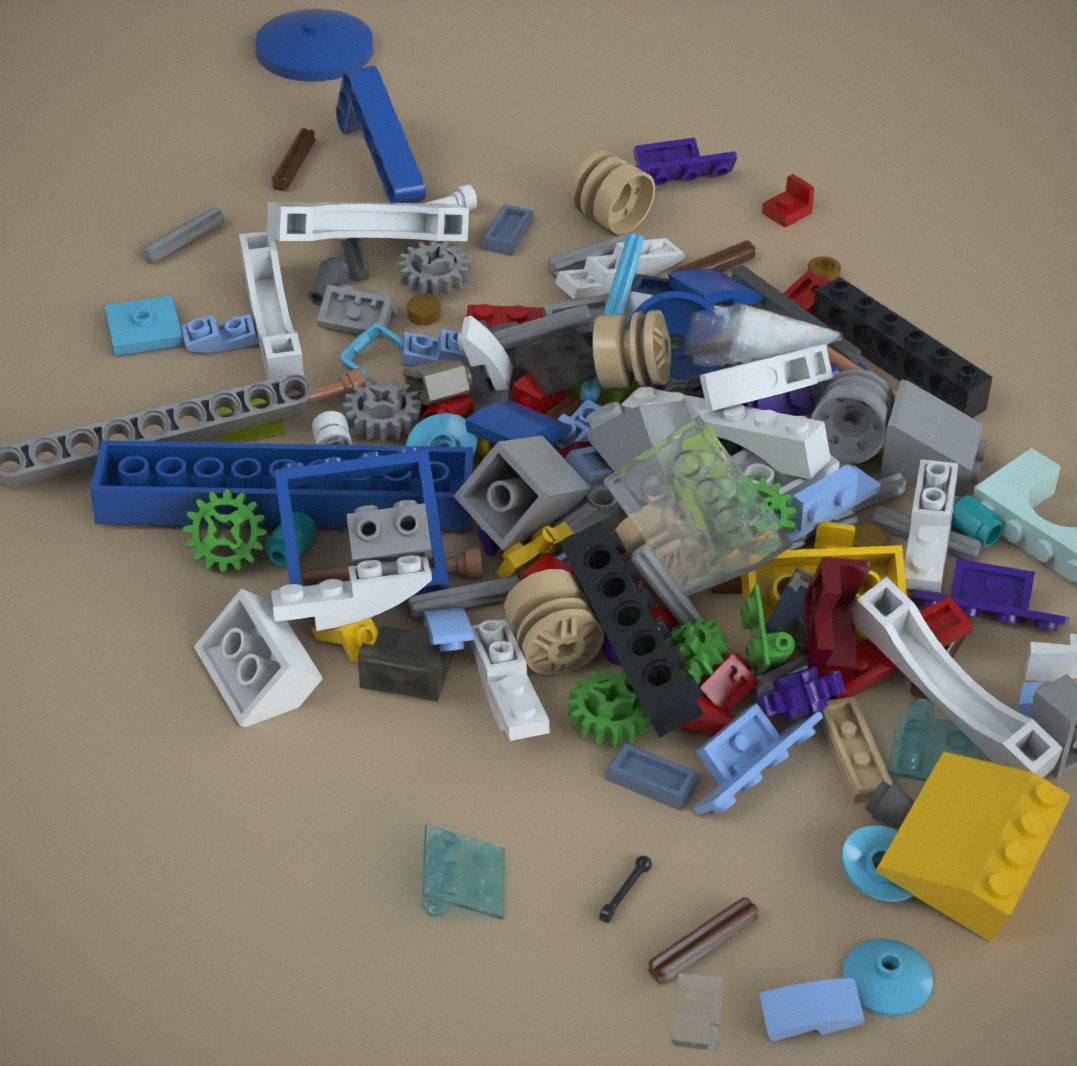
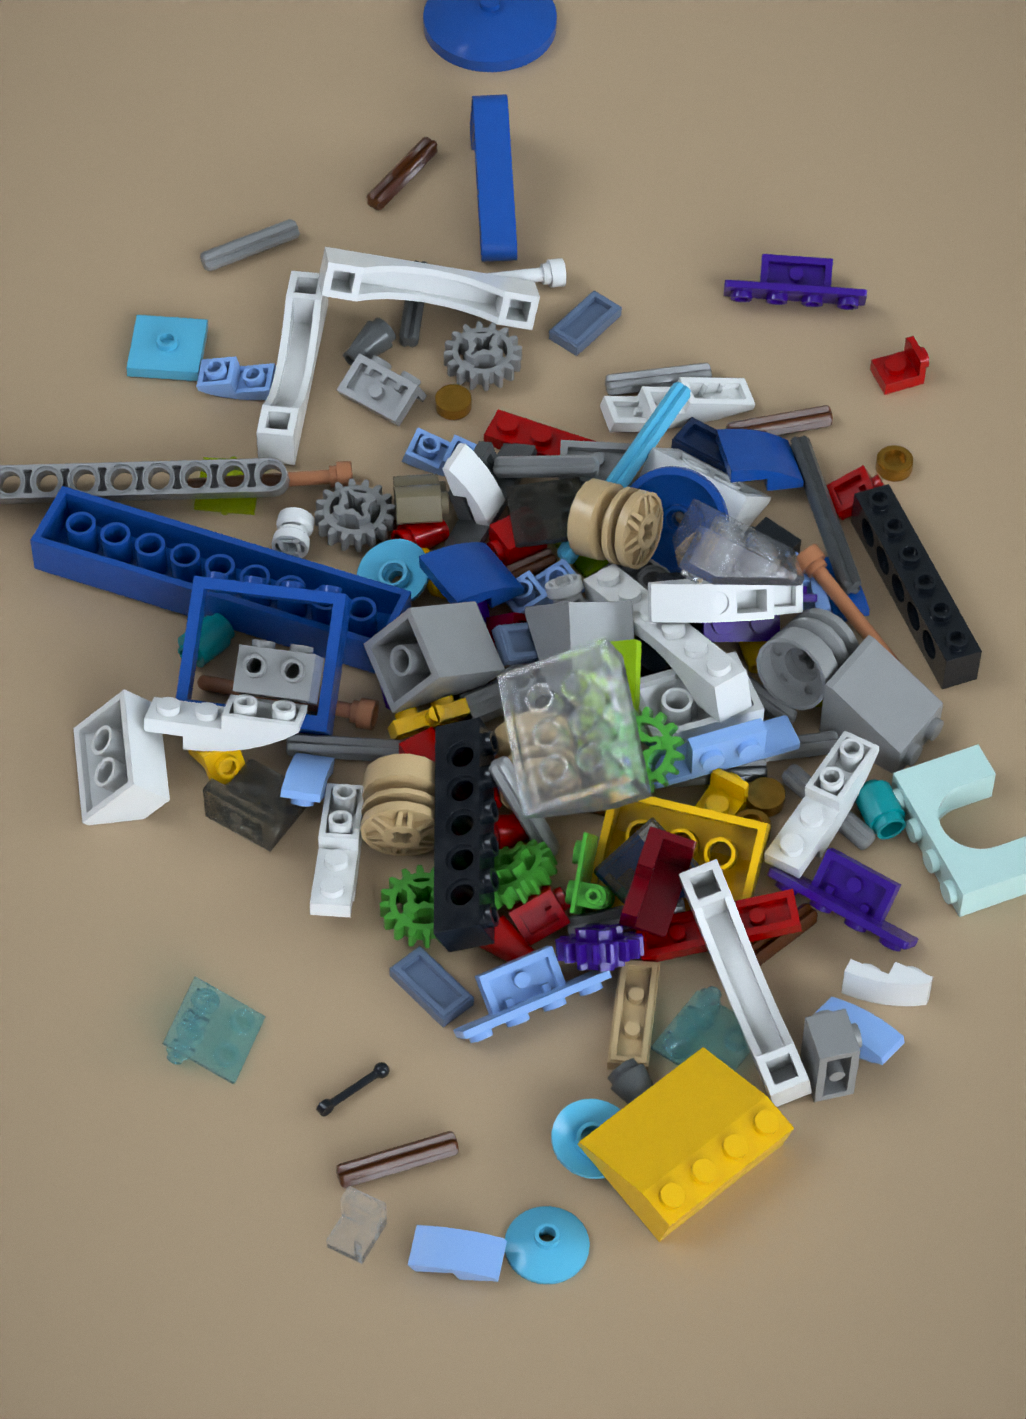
camera: 20 degrees right, 10 degrees up
(212, 543) = (152, 628): bright green gear -> none
(364, 341) = (369, 429): medium azure piece -> none
(612, 192) = (705, 311): tan wheel -> none

